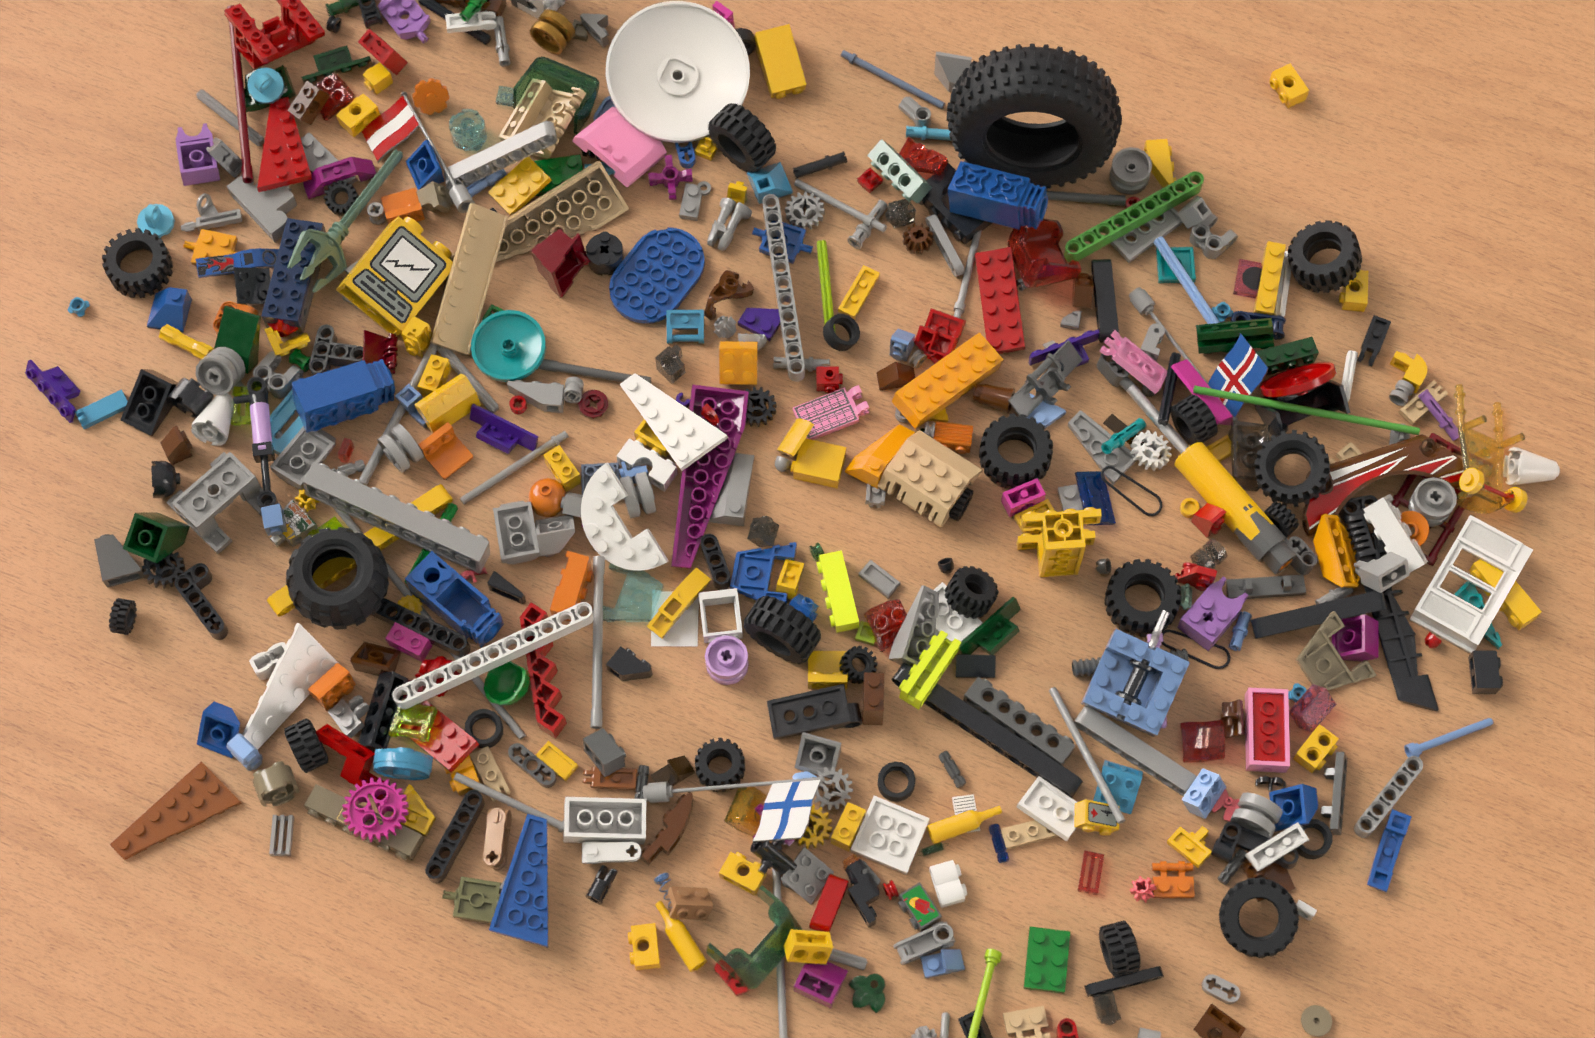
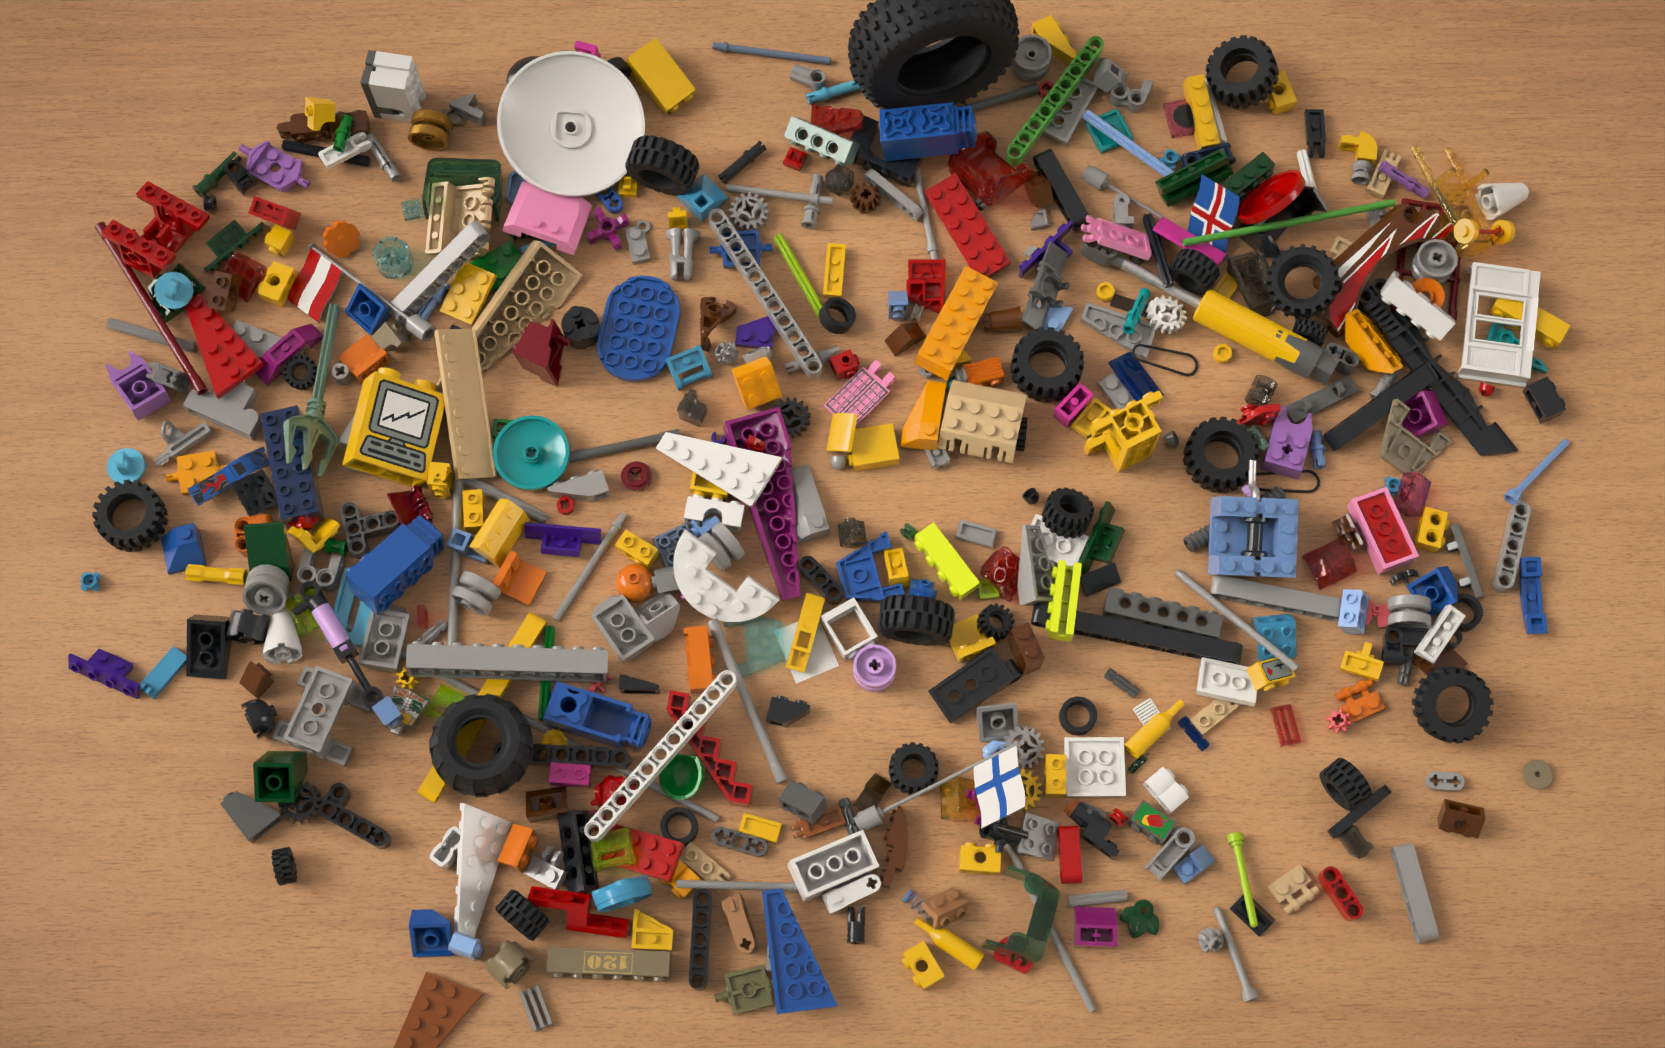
camera: 25 degrees left, 5 degrees up
(392, 802) = (605, 960): dark pink gear -> none
(573, 389) = (612, 471): light grey wheel -> none
(808, 946) = (1073, 903): yellow brick -> none
(949, 68) = (826, 25): light grey slope -> none
(1046, 960) = (1283, 821): green plate -> none
(1103, 408) = (1105, 292): none -> yellow tile
(1209, 519) = (1247, 357): red slope -> none
(1305, 910) = (1490, 680): white tile -> none
(1383, 572) = (1422, 346): light grey hinge -> none

